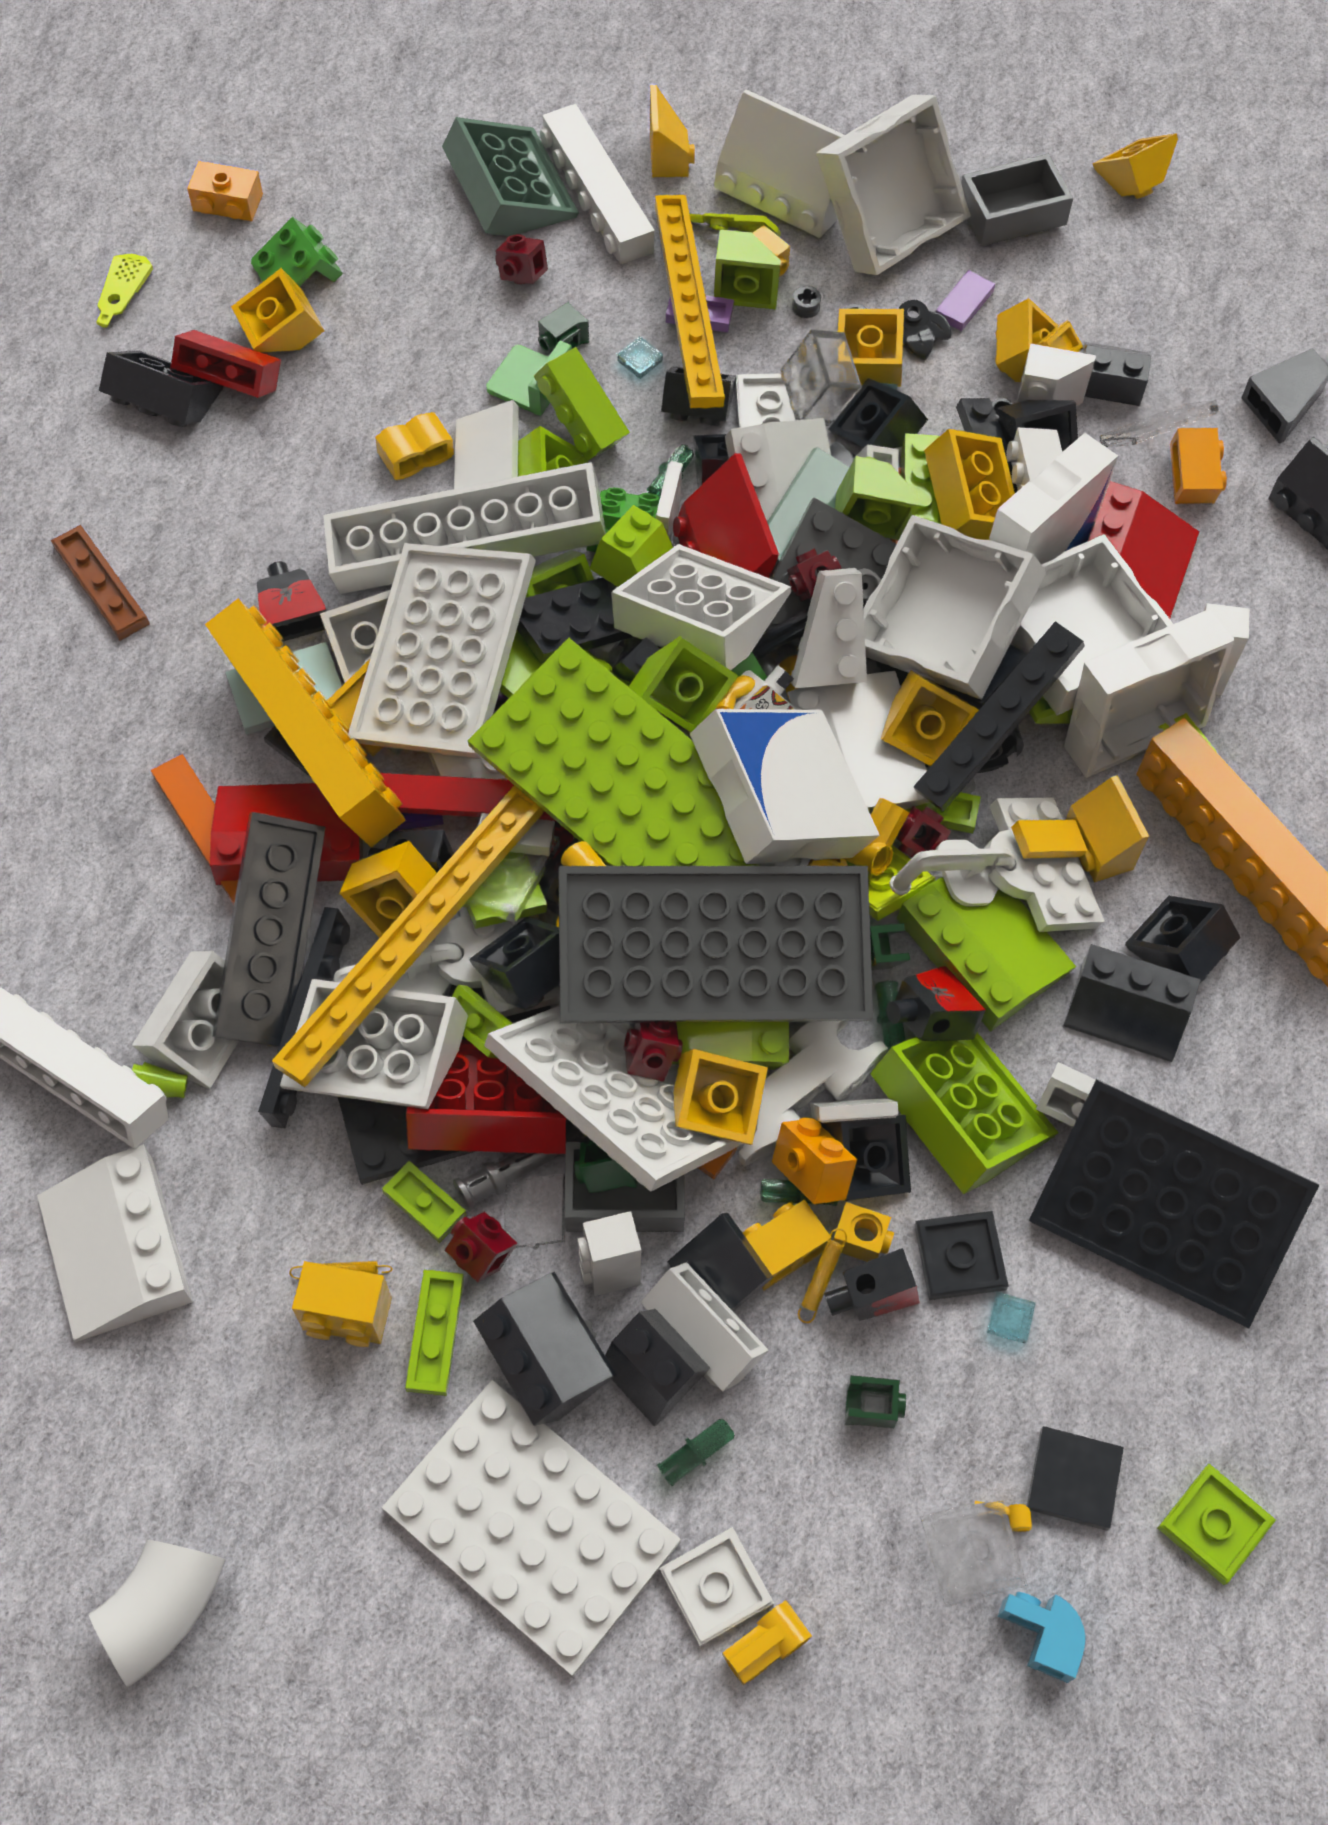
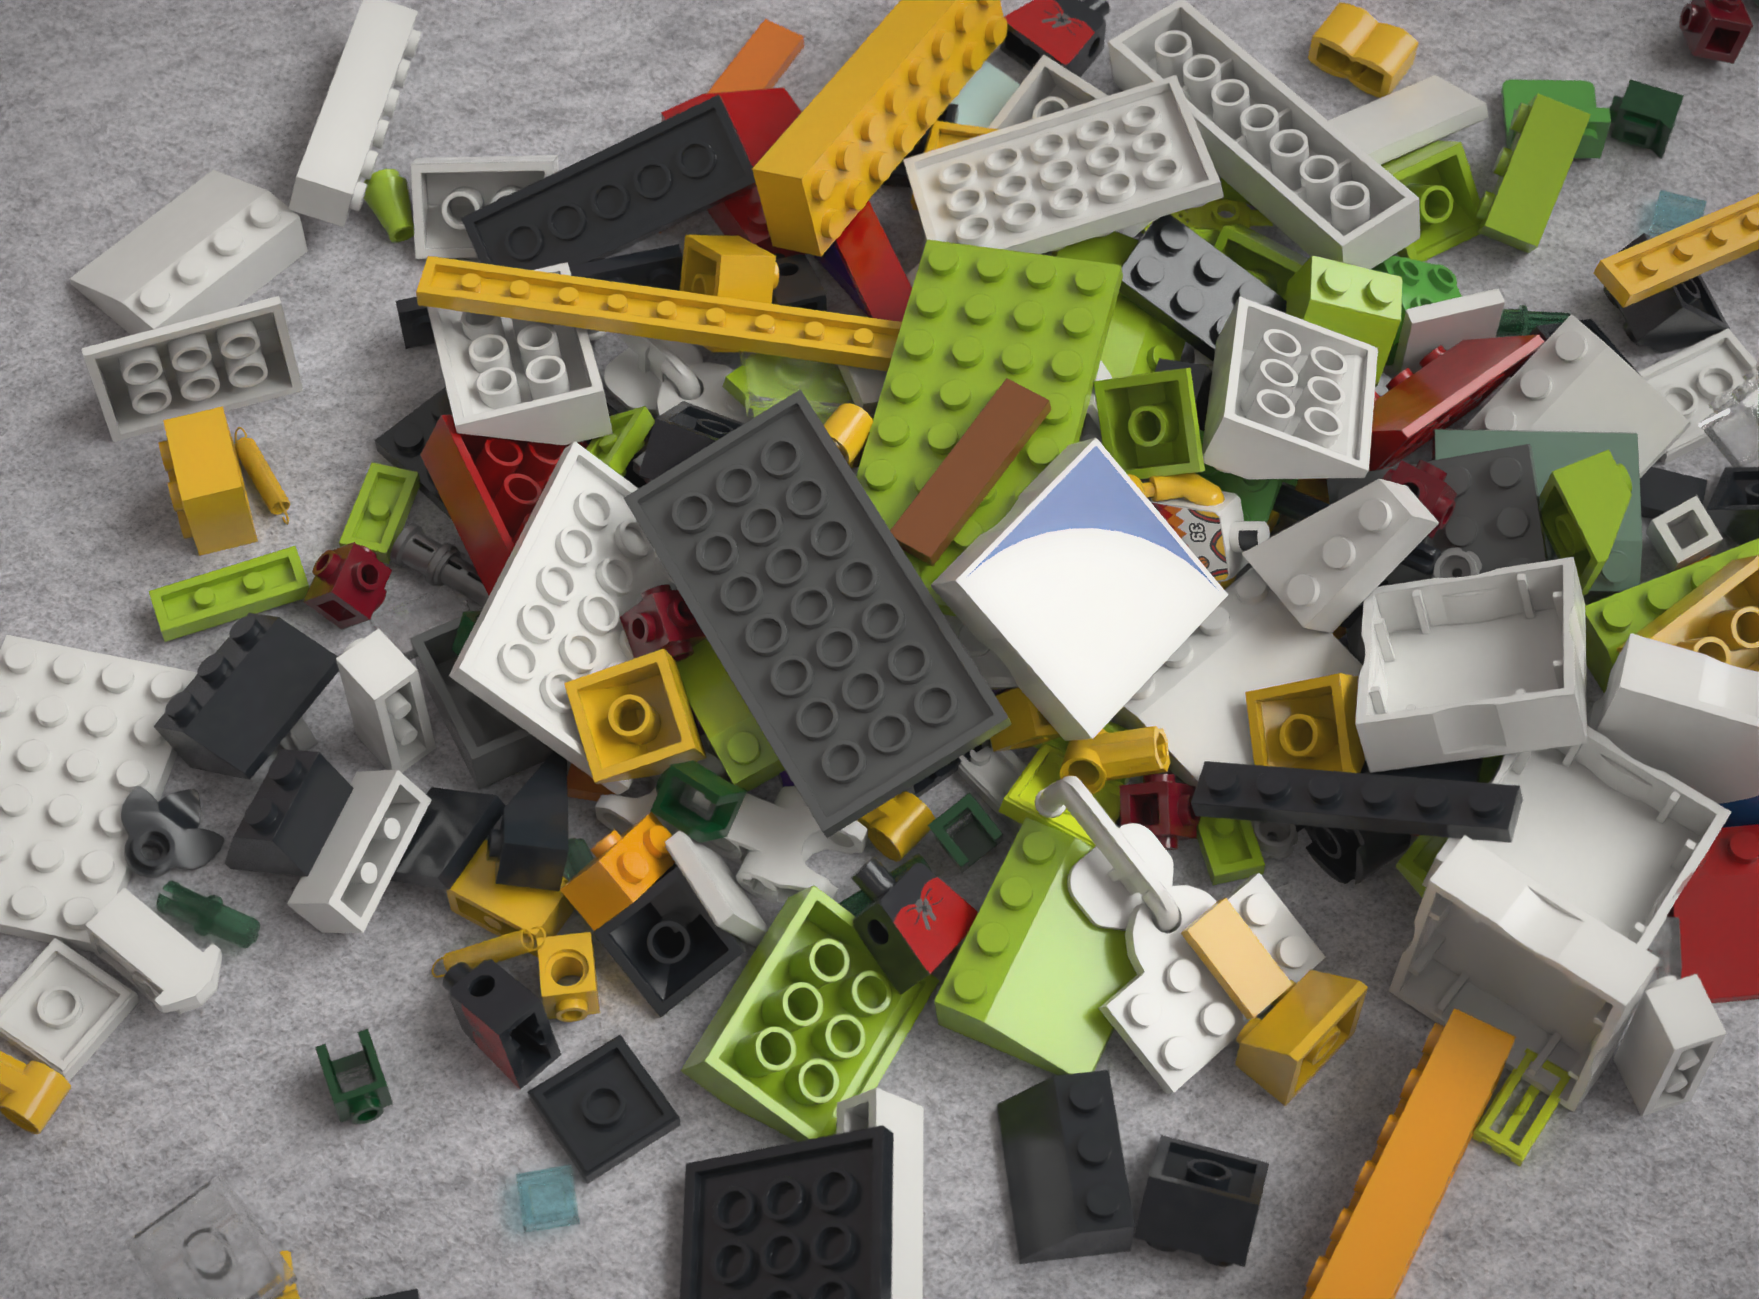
camera: 65 degrees right, 5 degrees down
(233, 1275) = (194, 367): none -> white slope
(613, 1451) = (170, 828): none -> black plate
(673, 799) = (970, 471): none -> dark orange tile
(721, 1498) = (153, 955): none -> white piece
(759, 1201) = (534, 831): none -> black slope
(792, 1090) = (697, 801): none -> dark green window

